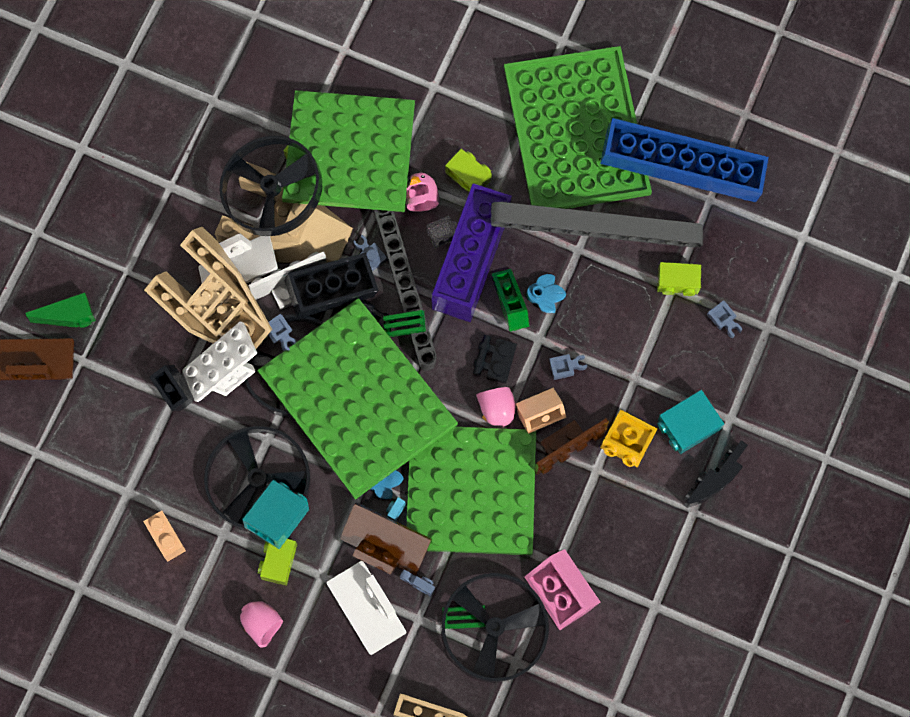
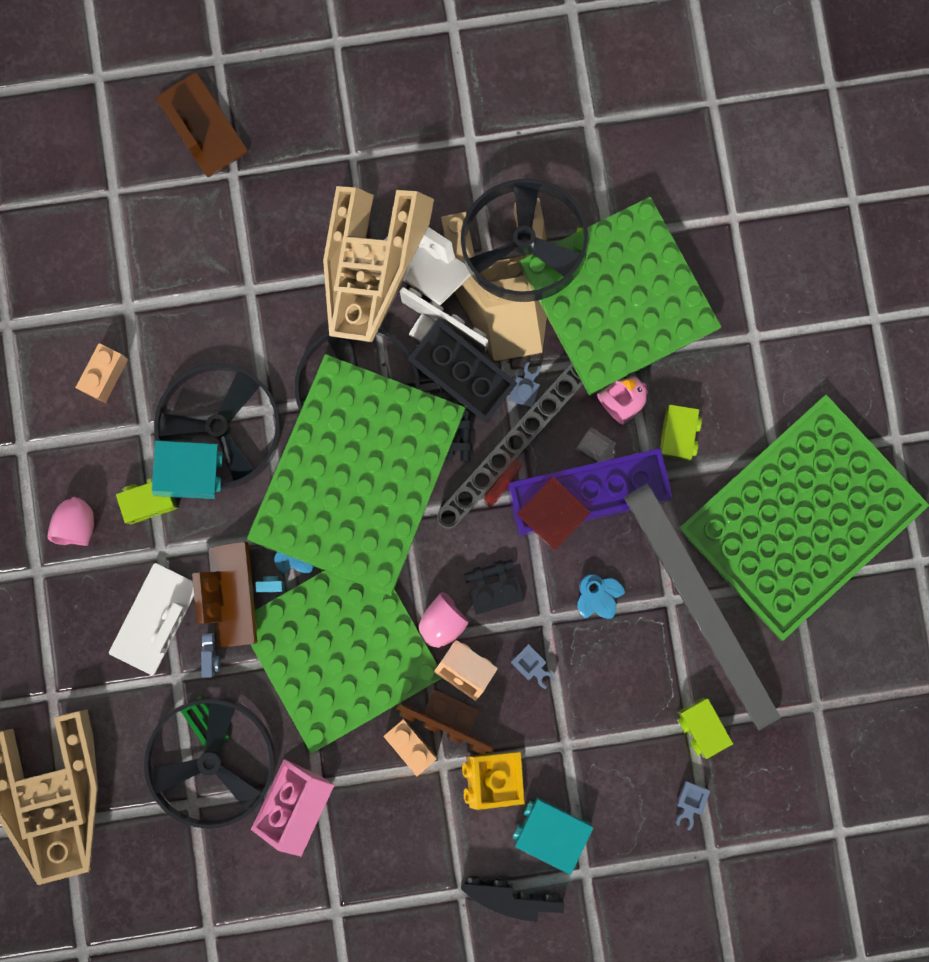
camera: 60 degrees right, 10 degrees up
(69, 312) = (274, 132): green slope -> none
(172, 387) = (255, 282): black brick -> none
(222, 364) = (307, 314): white bracket -> none
(280, 332) = (379, 349): sand blue plate -> none
(388, 325) = (456, 458): green tile -> none
(428, 306) = (501, 485): none -> clear red tile
(472, 277) = (553, 513): none -> clear red tile
(511, 300) = (567, 564): green slope -> none
(570, 480) = (410, 746): none -> light nougat brick
(684, 160) = (840, 656): blue brick -> none

